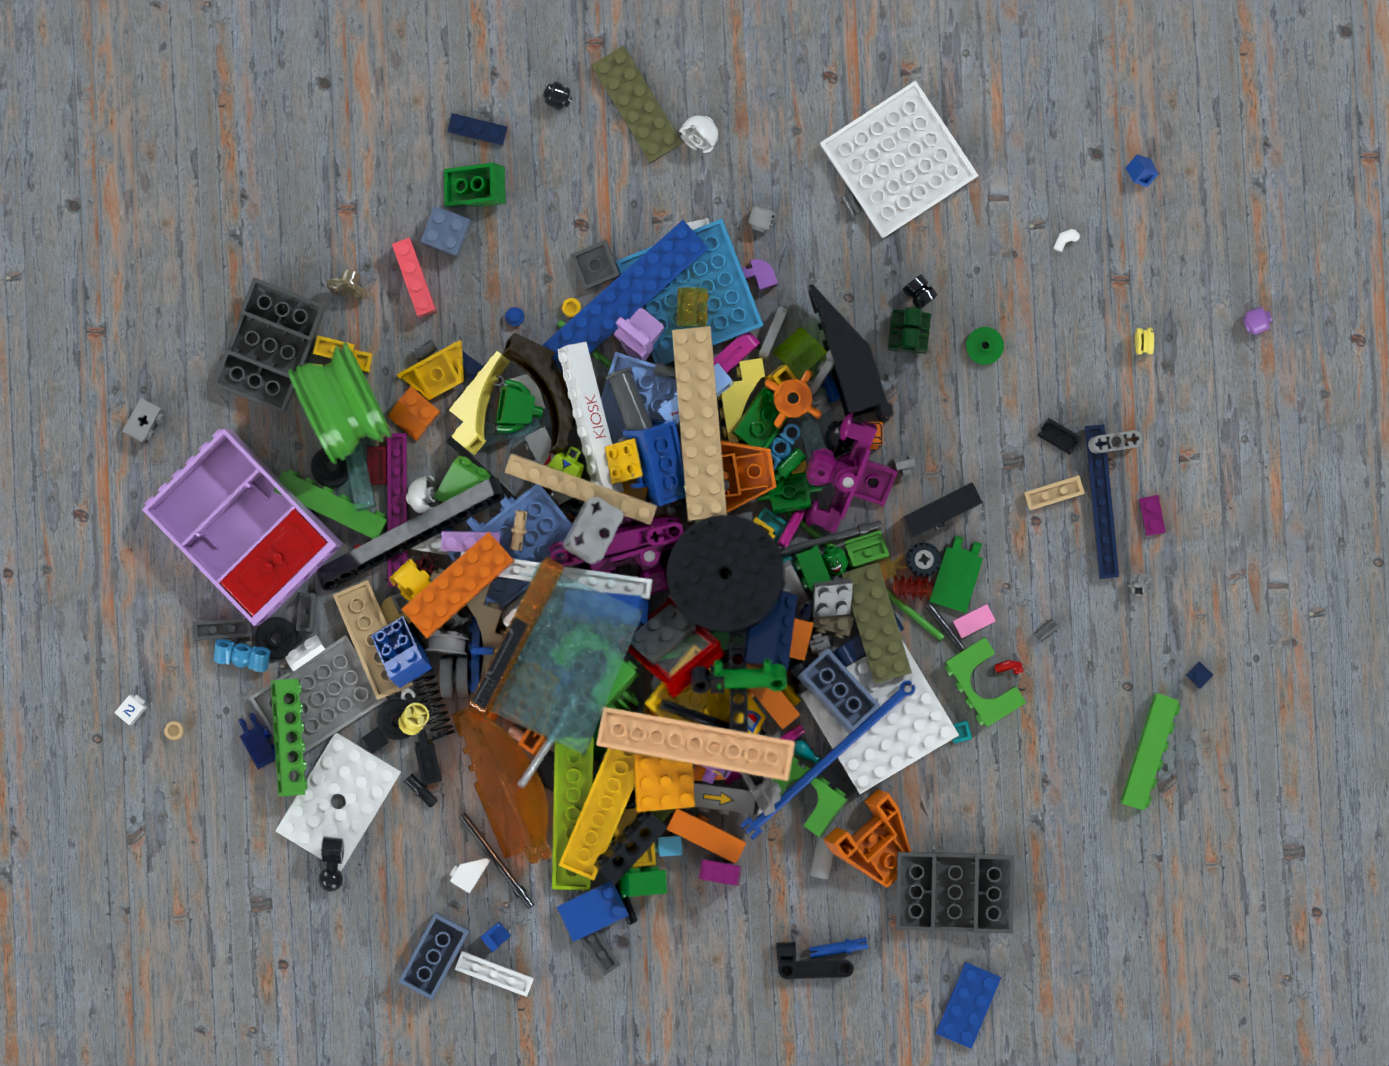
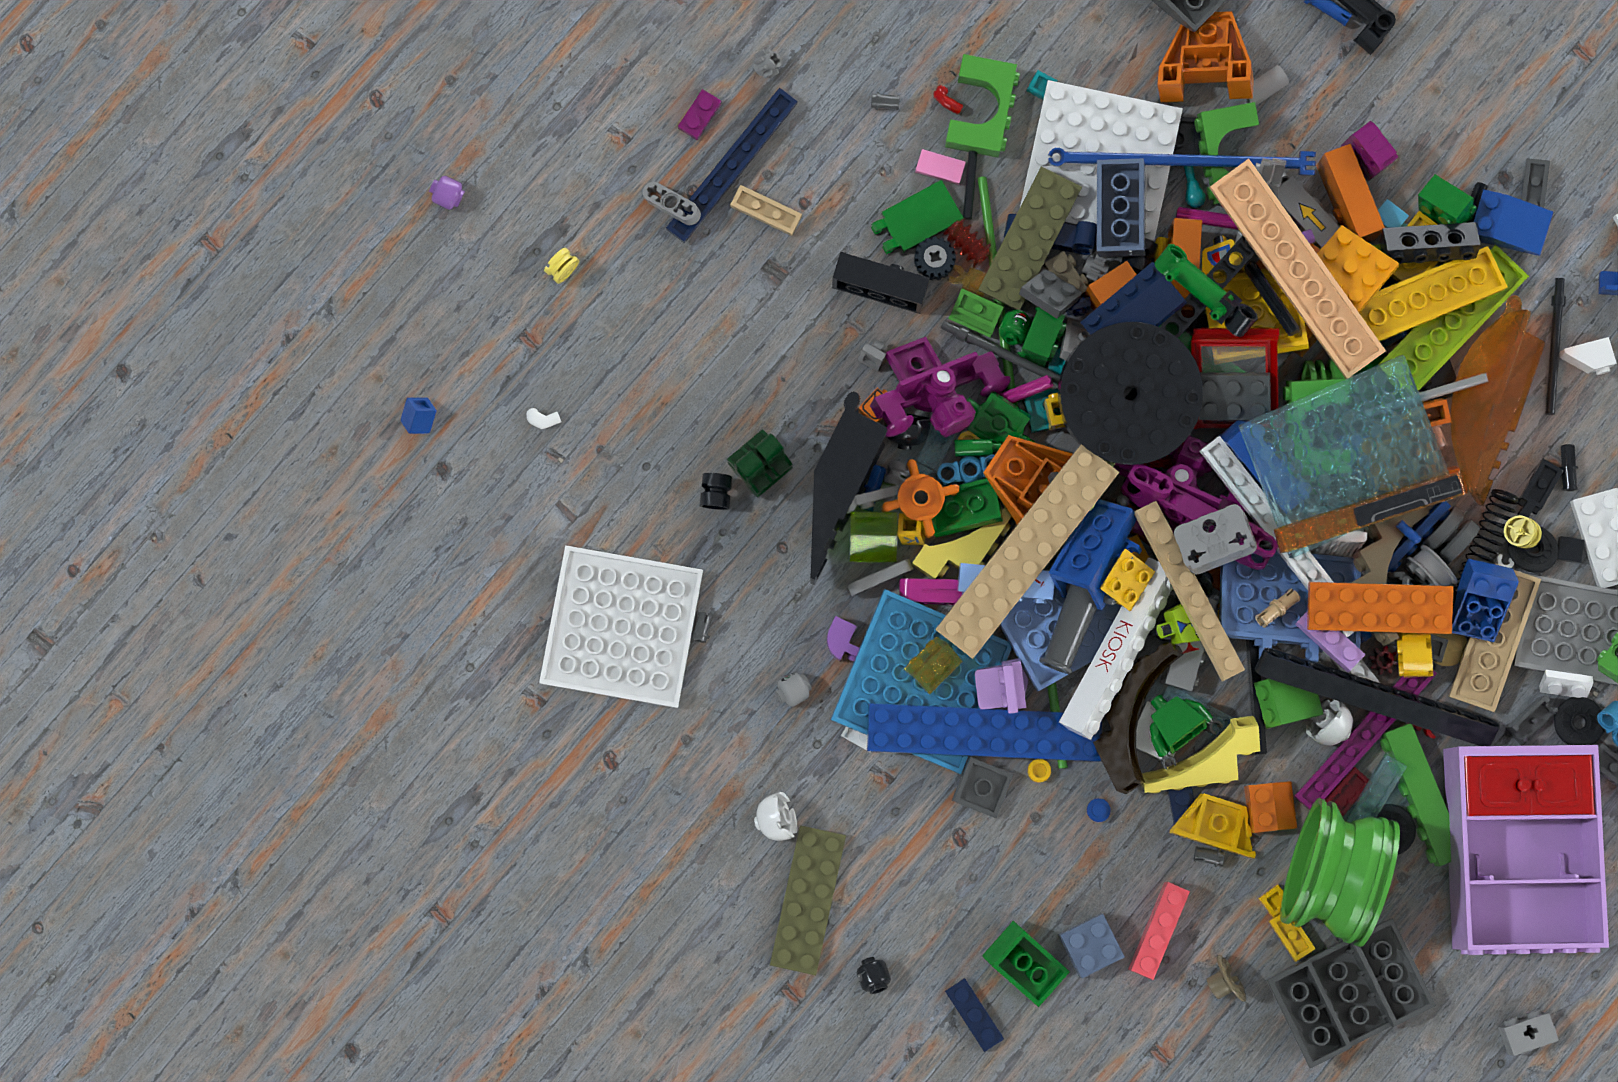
camera: 140 degrees left, 5 degrees down
(664, 370) = (1011, 631): dark grey pin -> none
(975, 350) = (707, 404): green plate -> none
(1059, 436) = (714, 254): black hinge -> none

